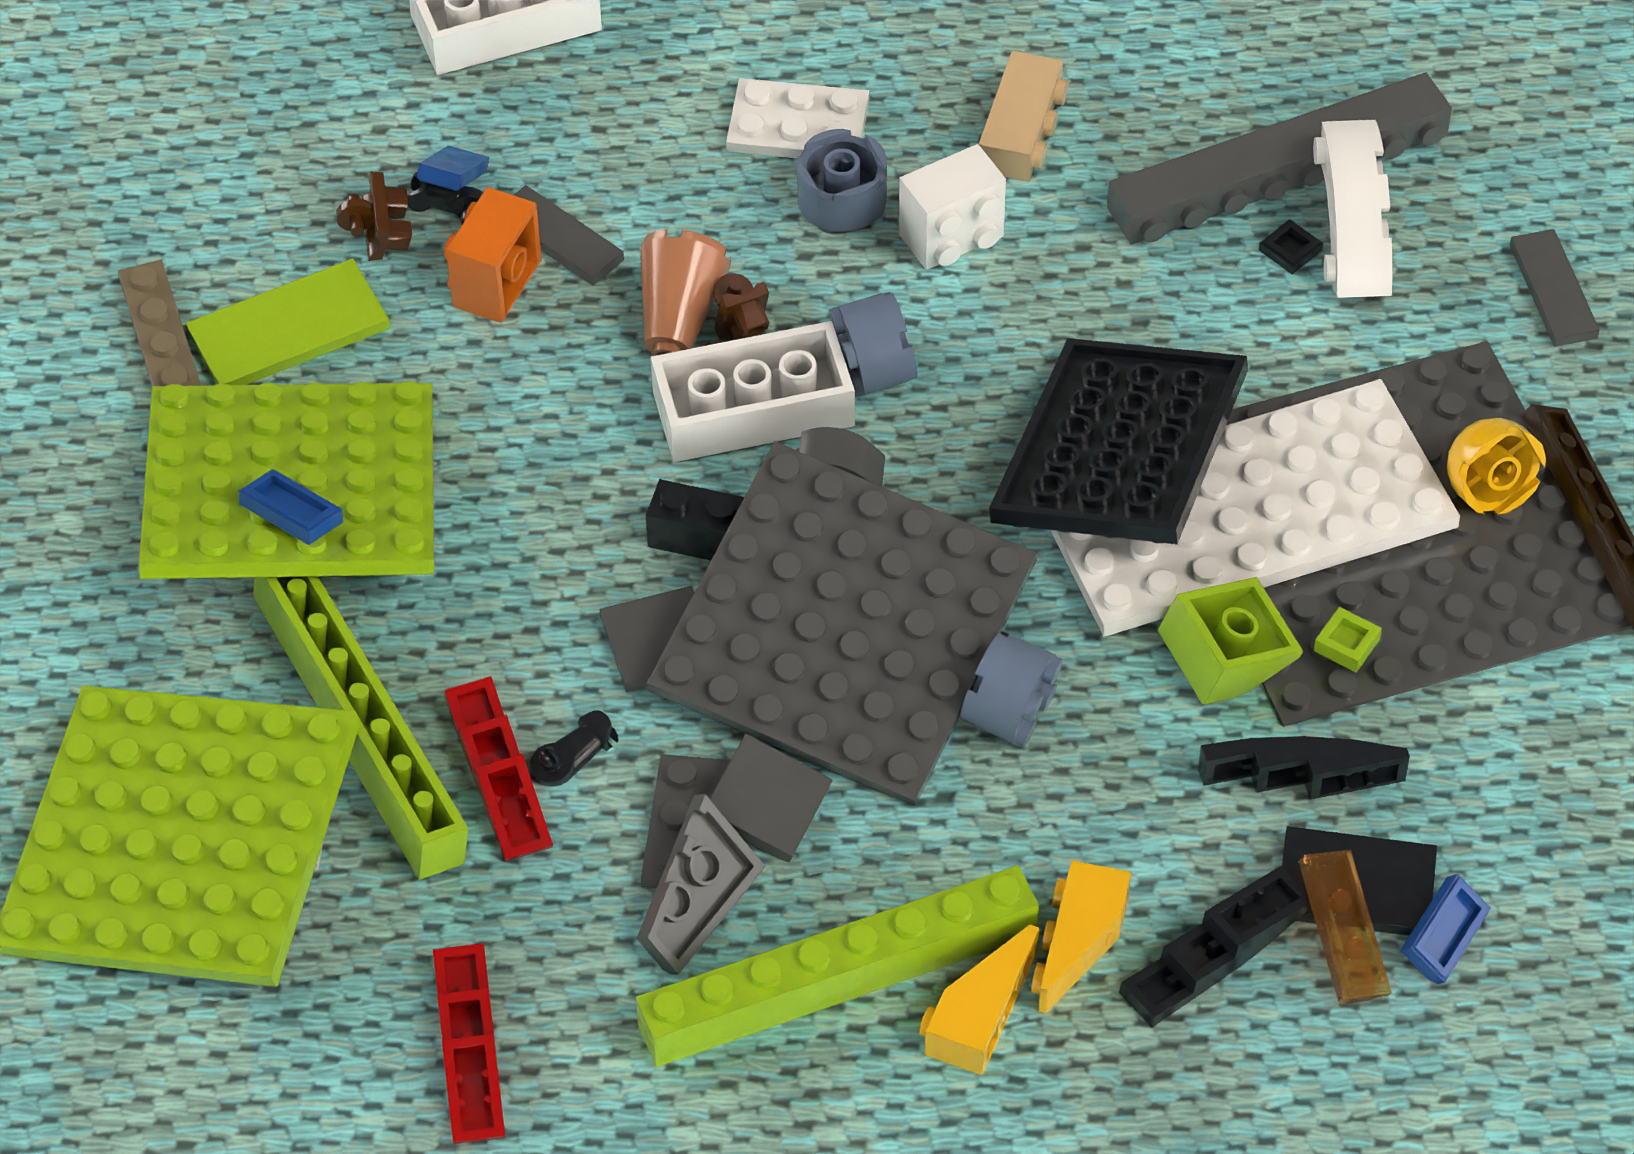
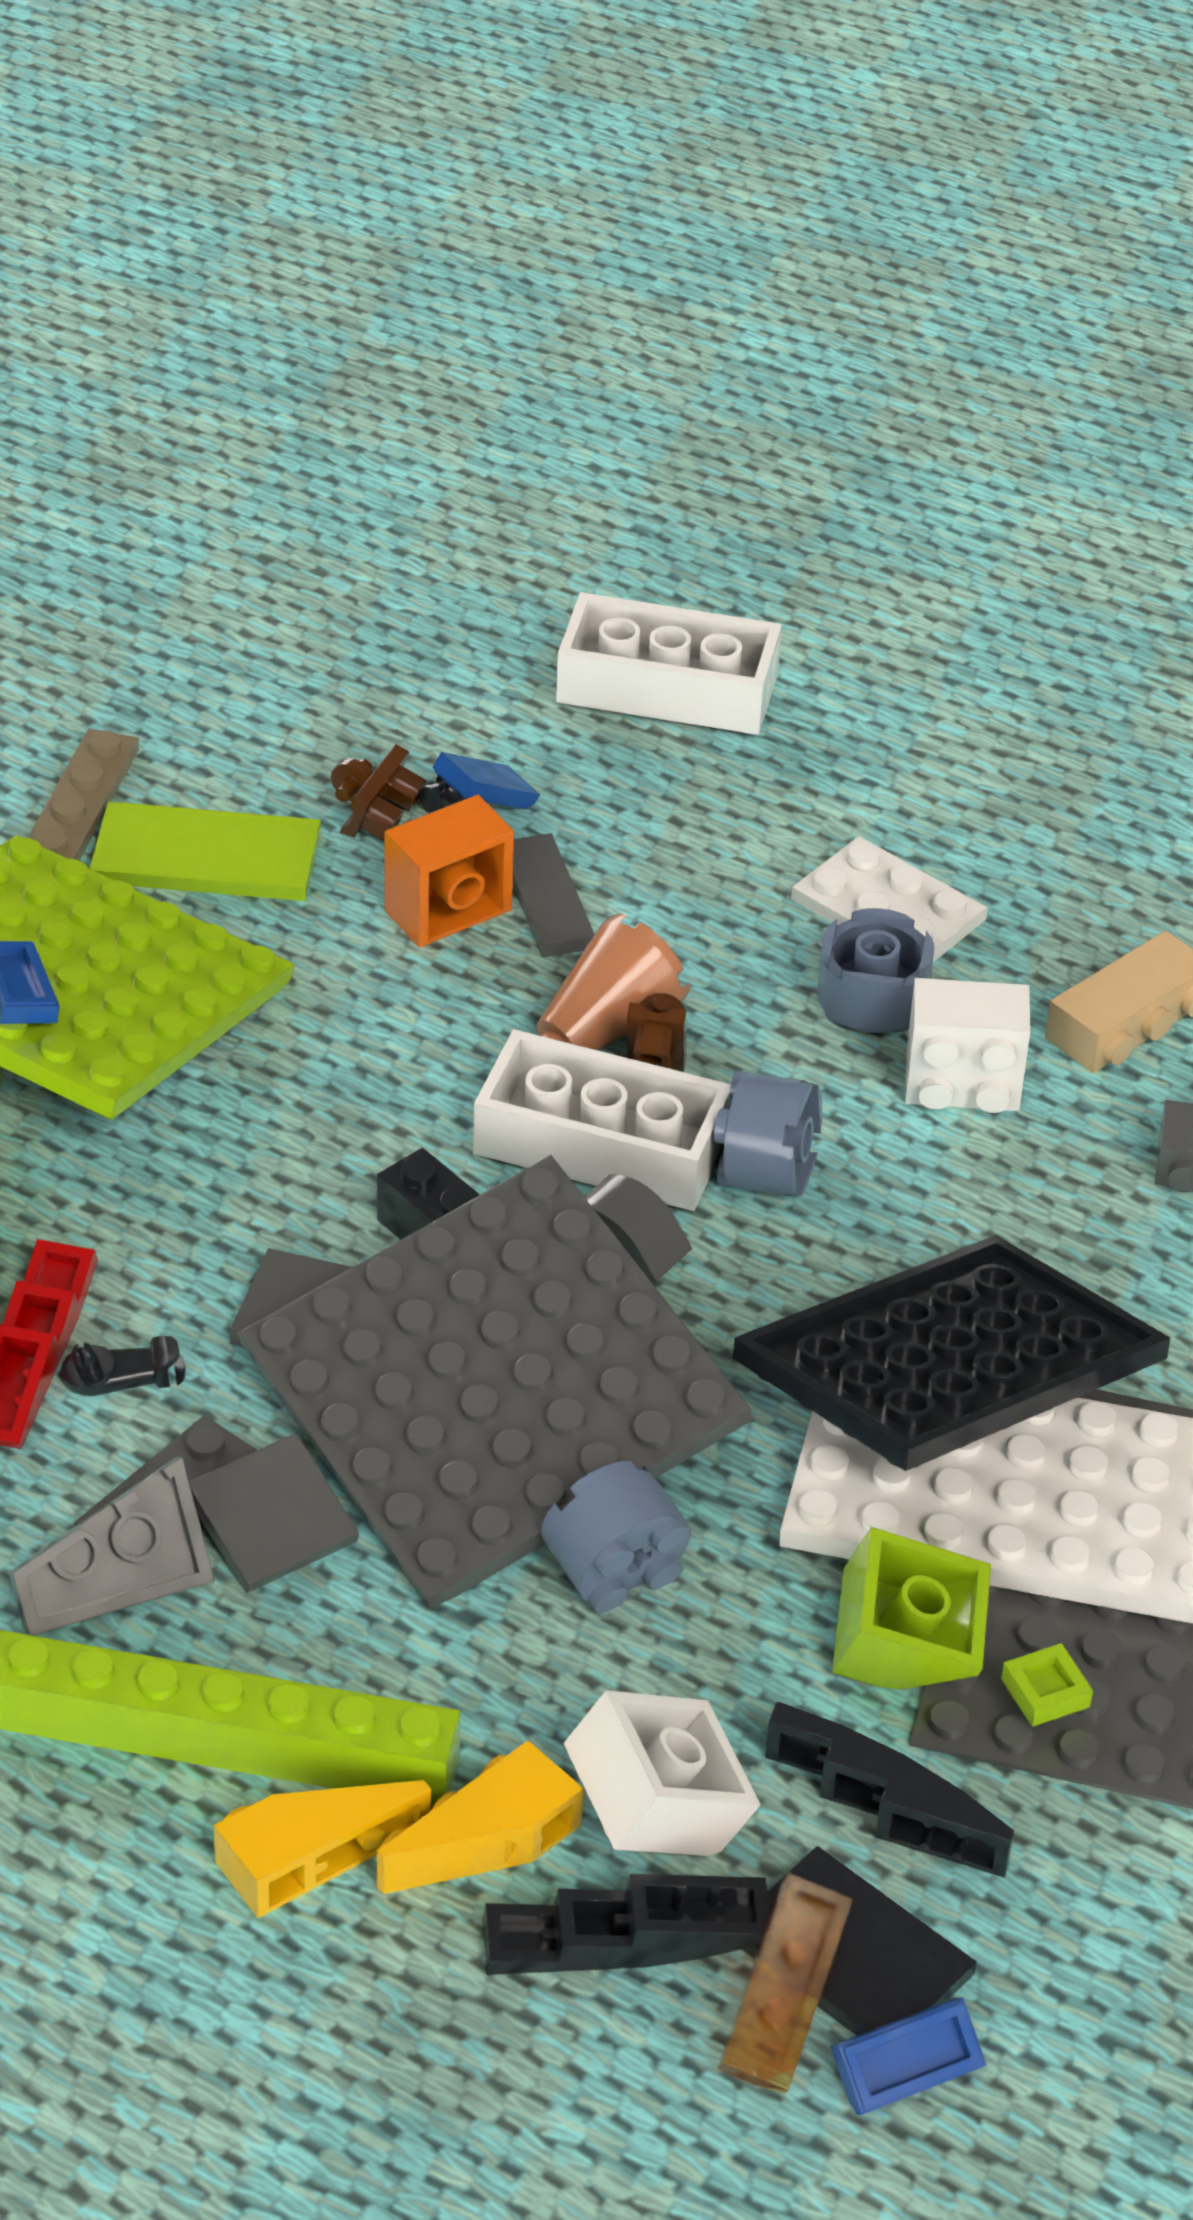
camera: 30 degrees right, 10 degrees down
(1171, 835) = (661, 1774): none -> white brick

